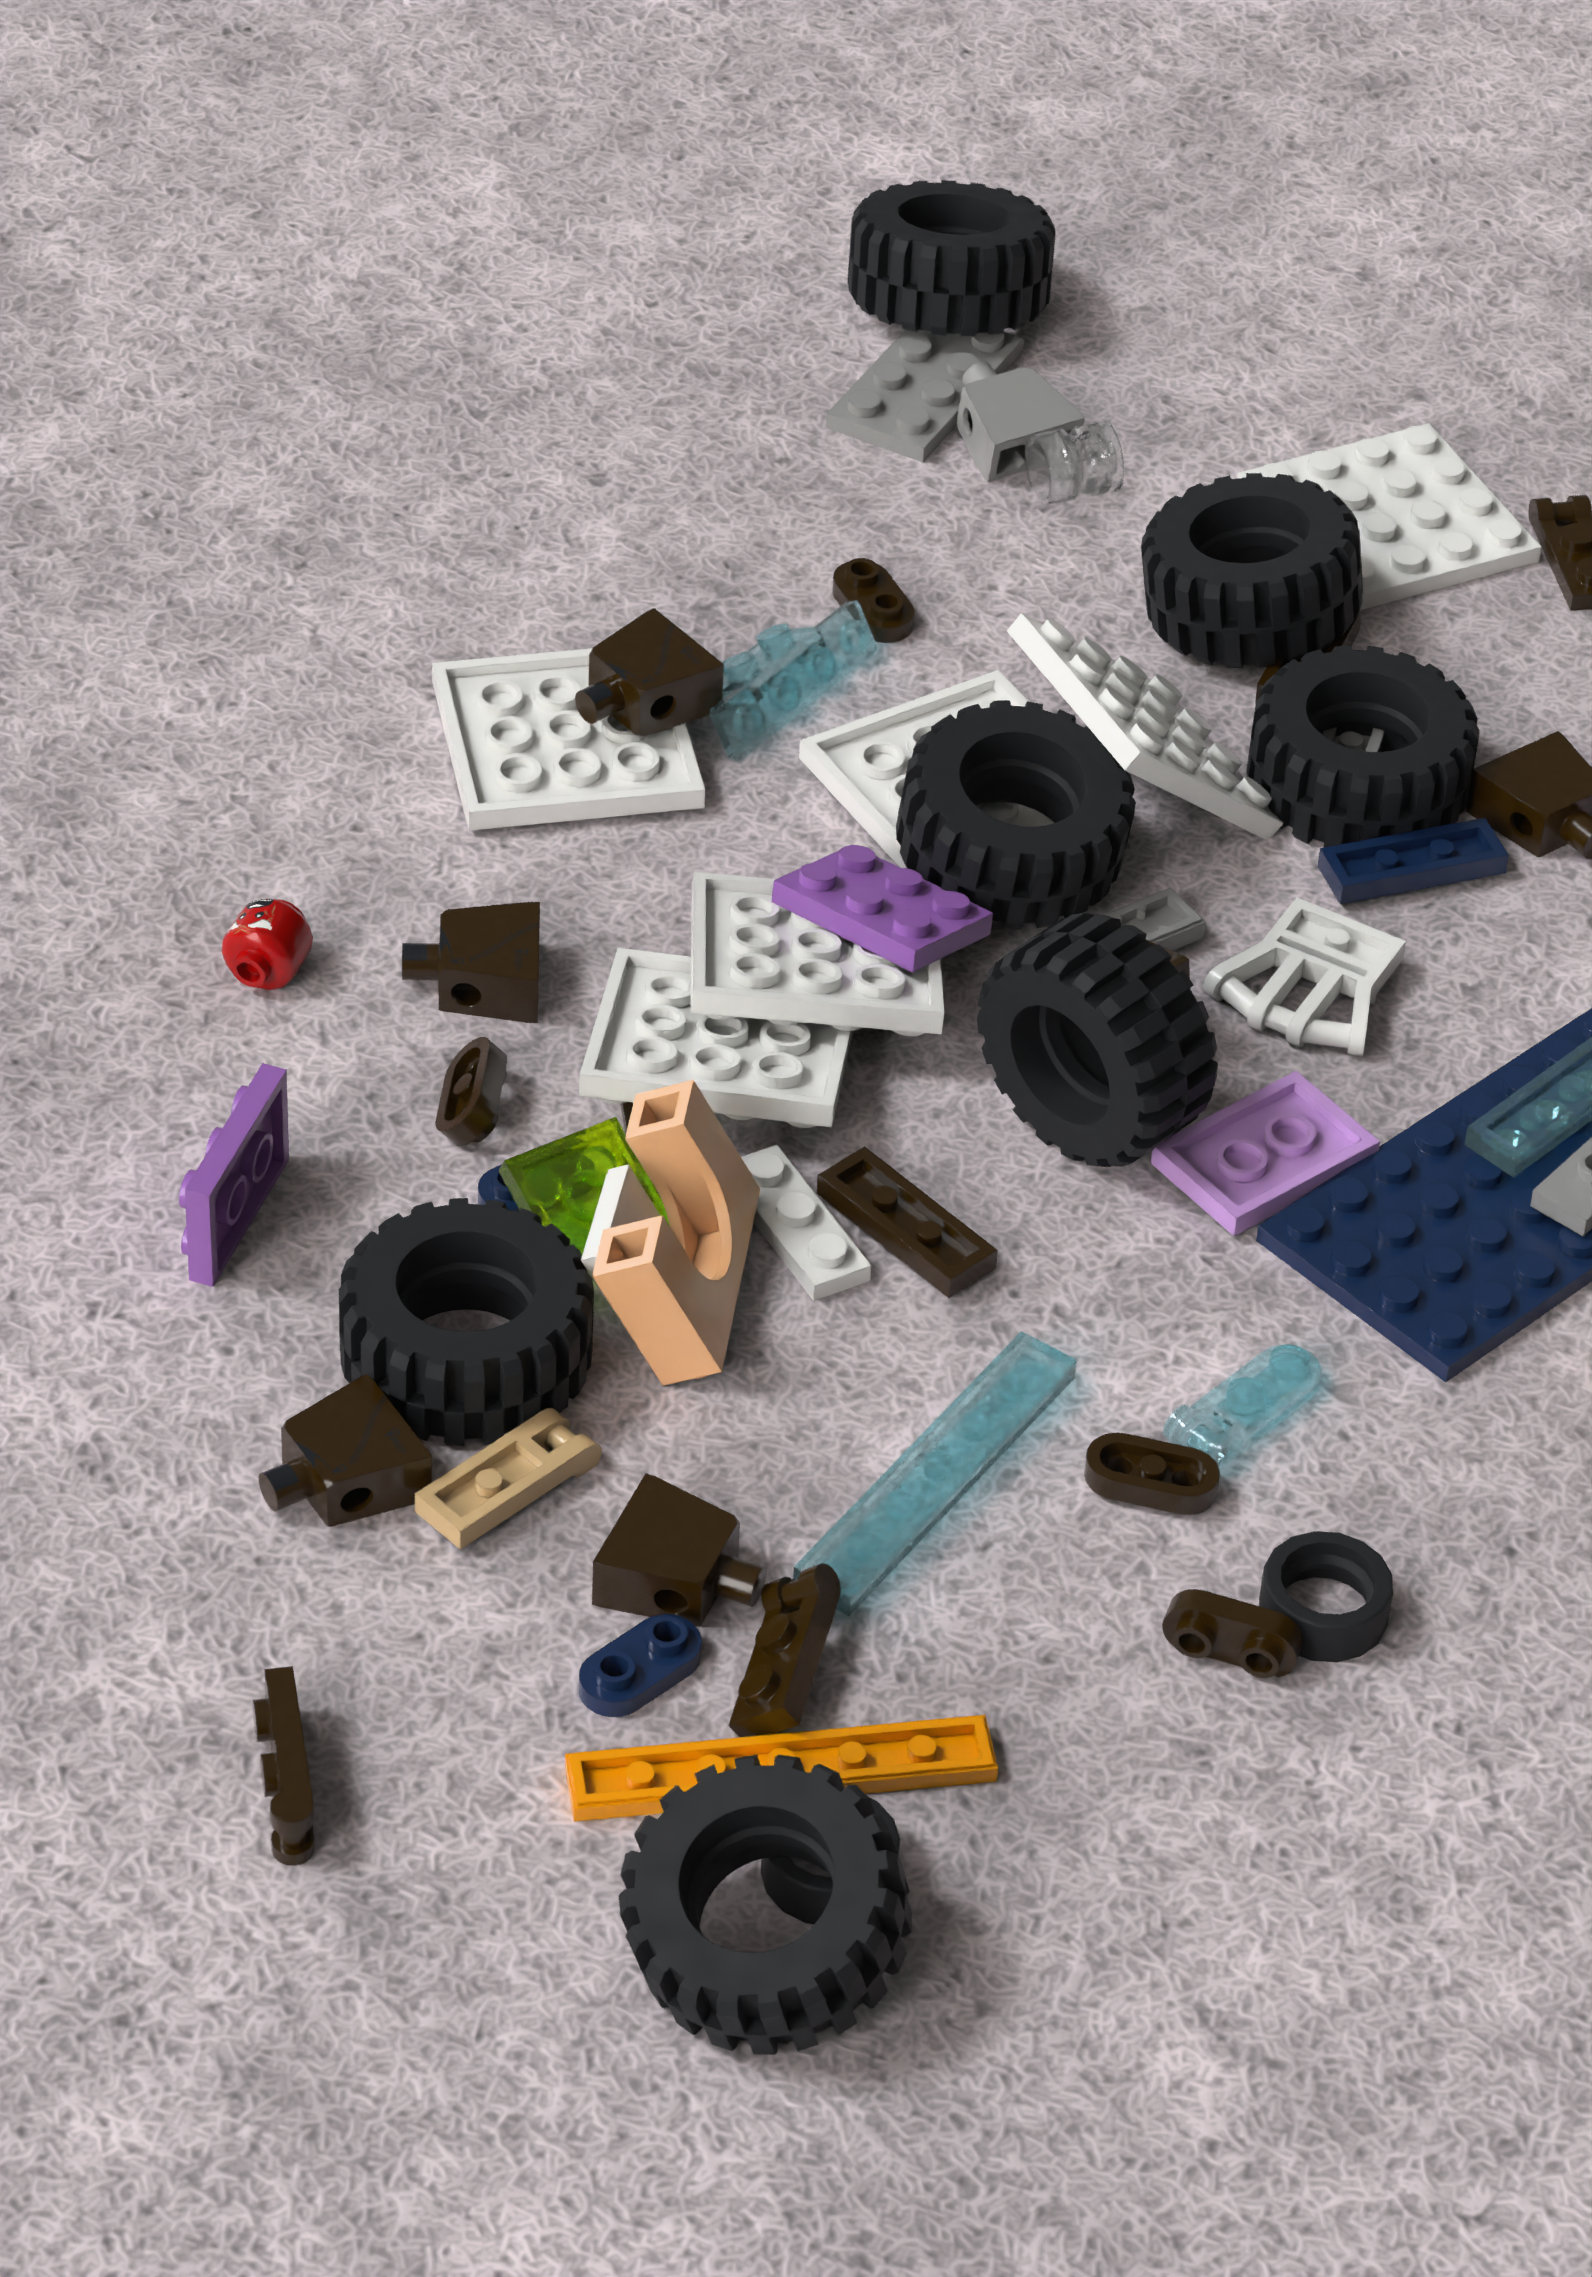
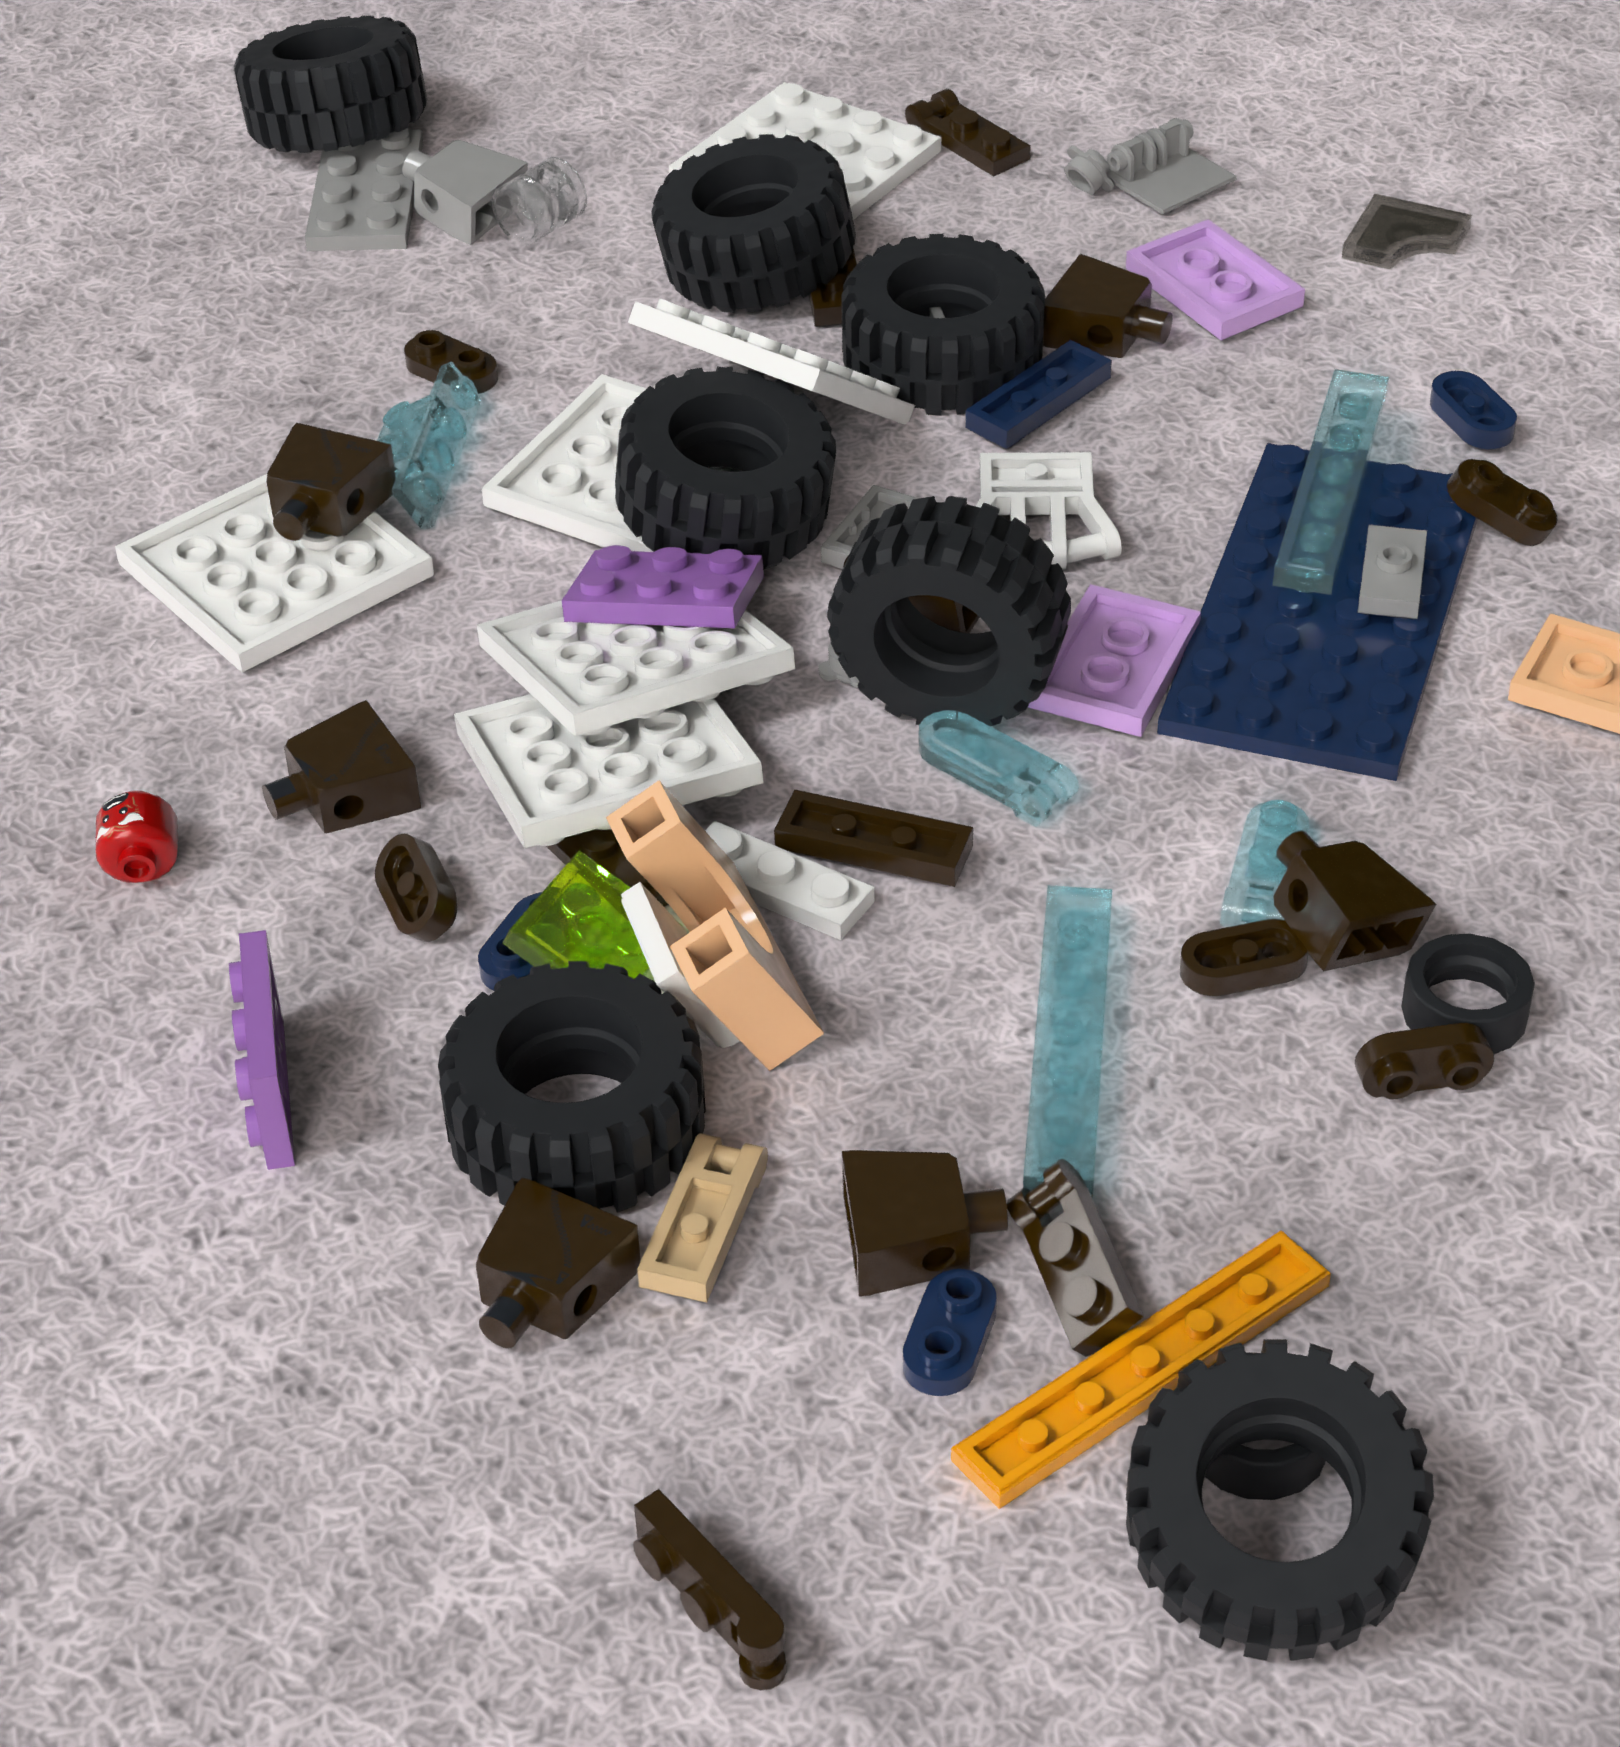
camera: 25 degrees left, 0 degrees up
(1071, 1202) = (995, 764): none -> clear light blue plate
(1273, 1465) = (1347, 902): none -> dark brown torso

